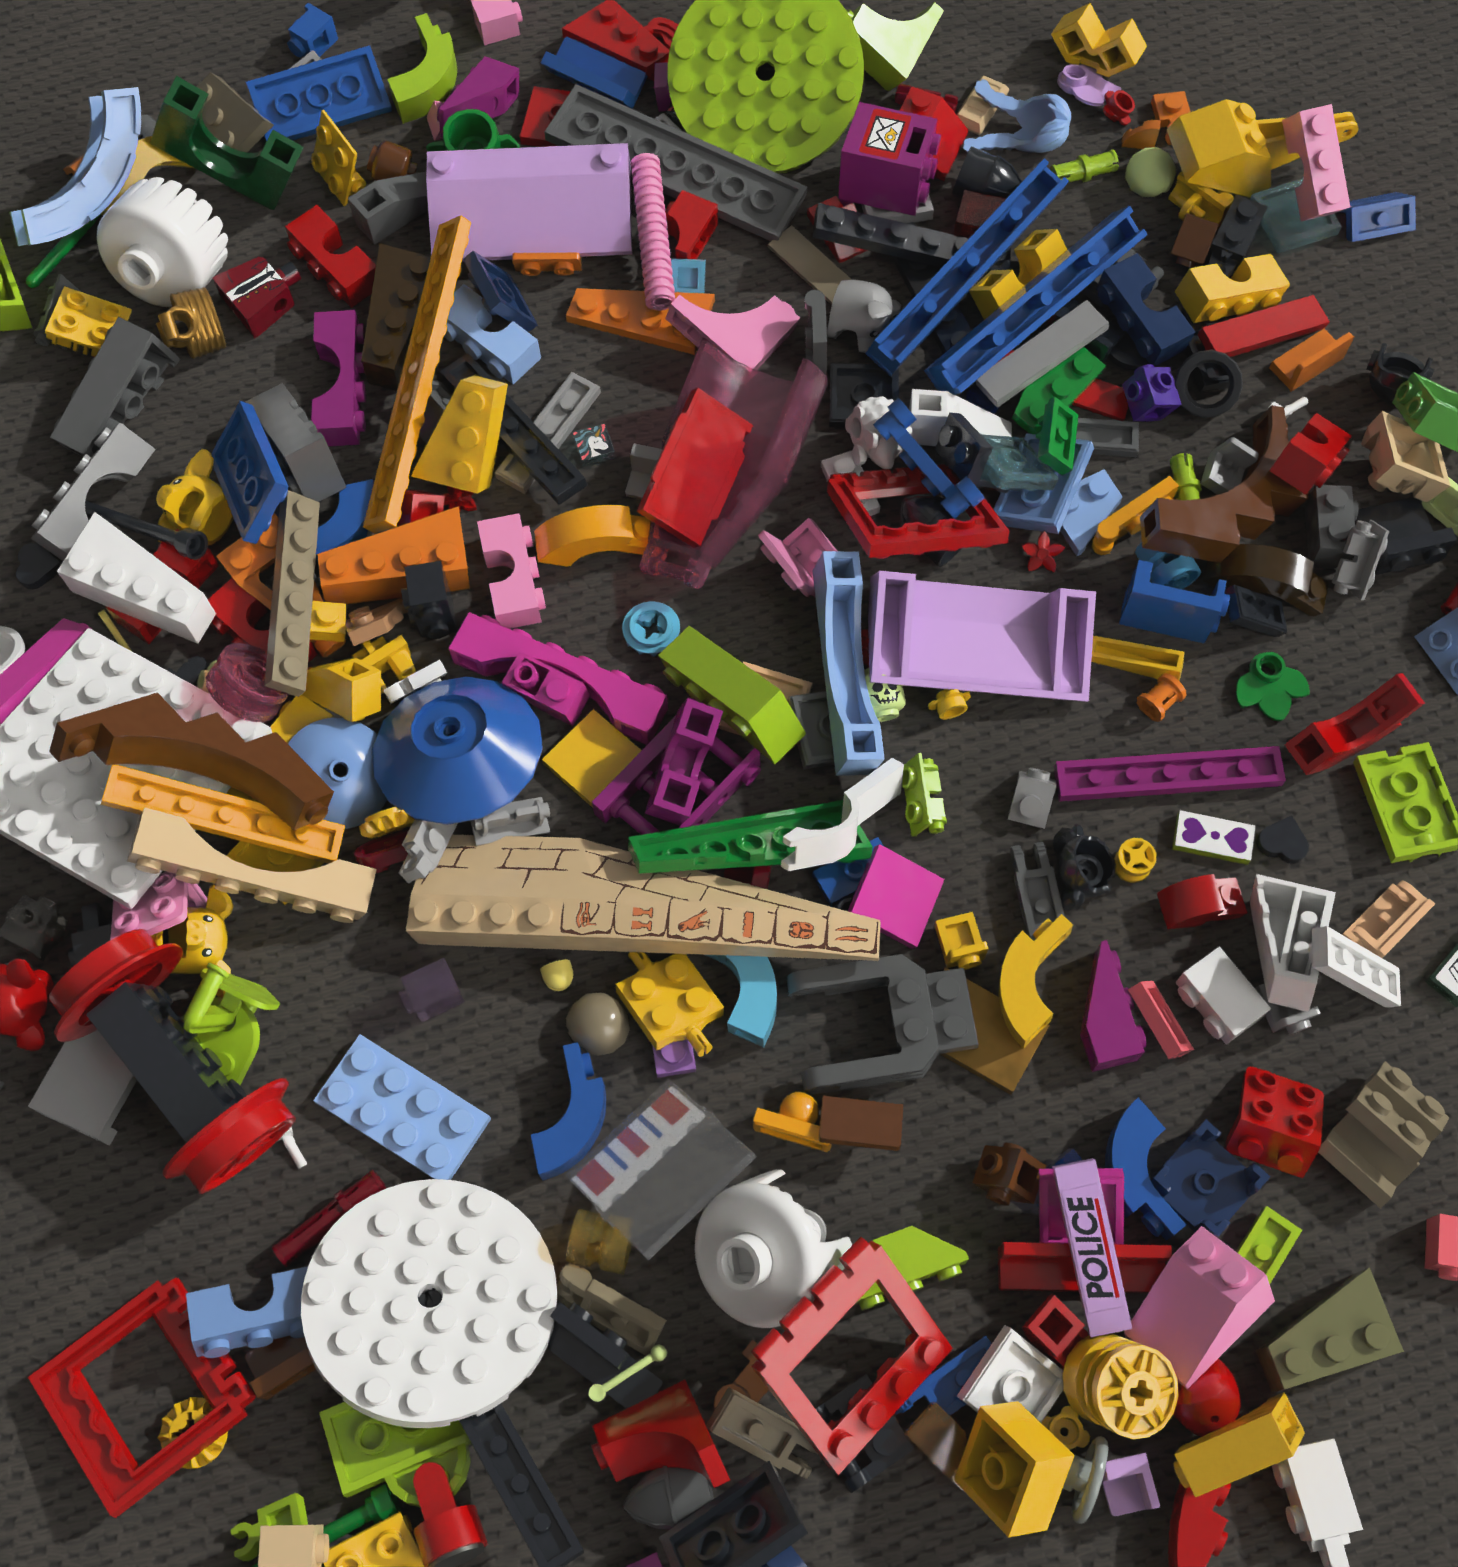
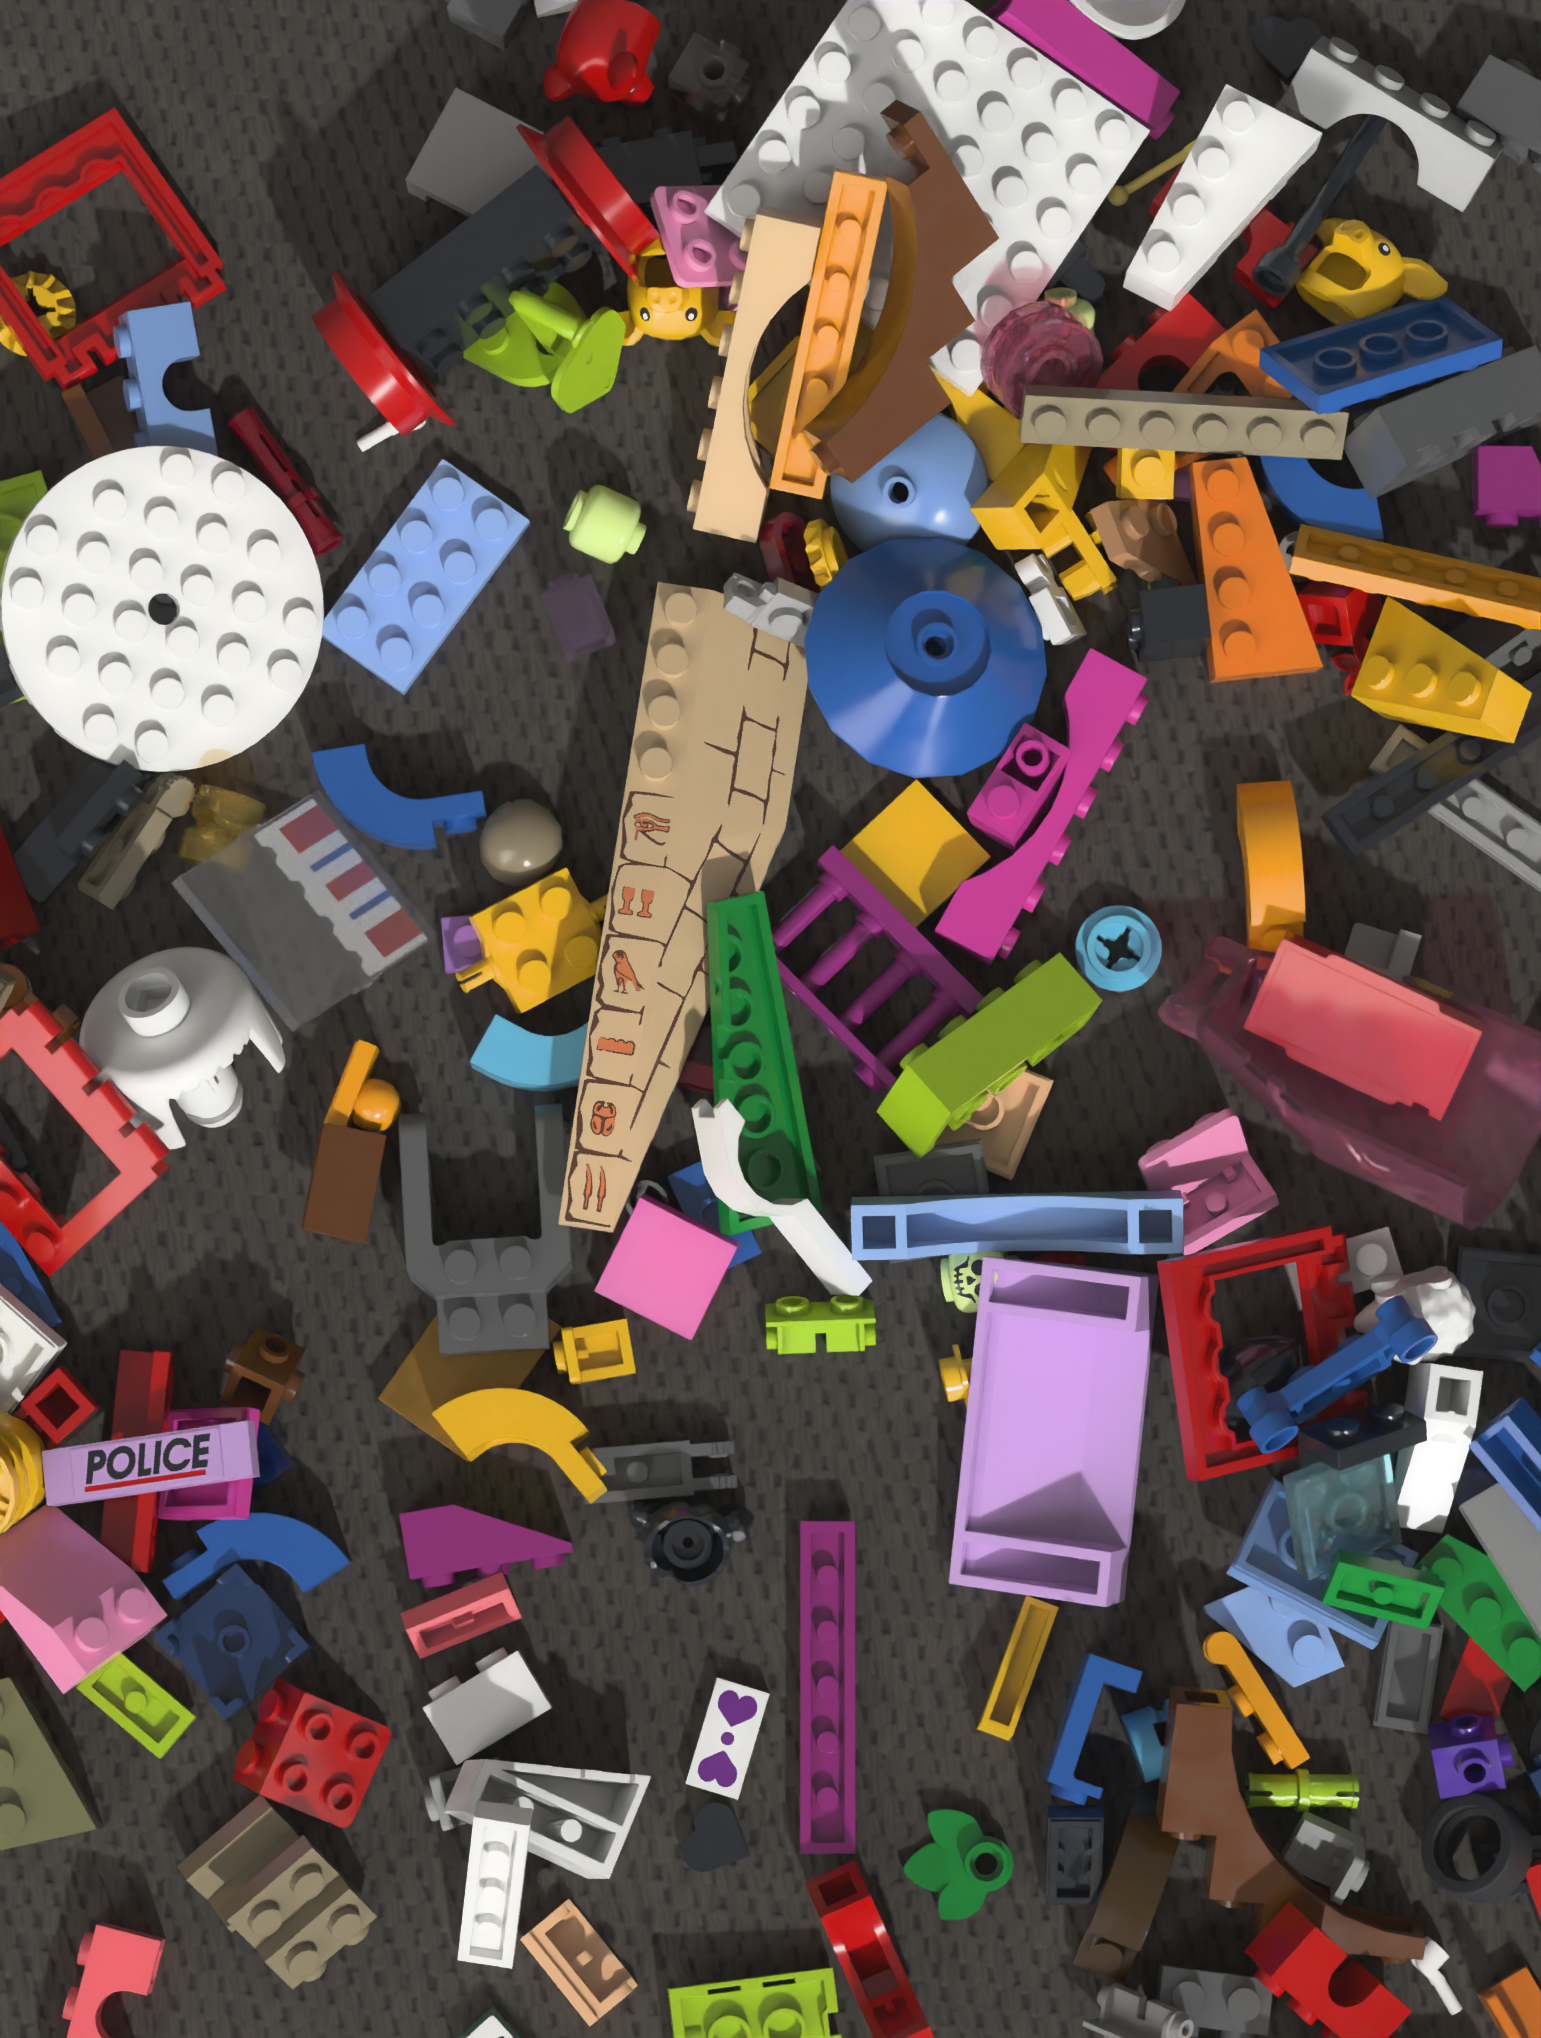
camera: 90 degrees right, 15 degrees up
(362, 979) = (604, 524): none -> yellowish green head
(506, 544) = (1177, 754): bright pink arch -> none
(514, 819) = (824, 755): light grey hinge -> none
(558, 974) = (590, 790): light yellow hinge -> none
(593, 445) = (1443, 878): tile -> none
(598, 1392) = (35, 820): yellowish green hinge -> none
(682, 760) = (861, 968): magenta arch -> none
(916, 1258) = (169, 1235): lime slope -> none
(1032, 798) = (806, 1482): light grey bracket -> none
(1042, 553) = (1204, 1549): red plant -> none
(1139, 853) = (691, 1617): yellow wheel -> none
(1161, 697) = (949, 1694): orange bush -> none
(1201, 900) = (627, 1702): red brick -> none

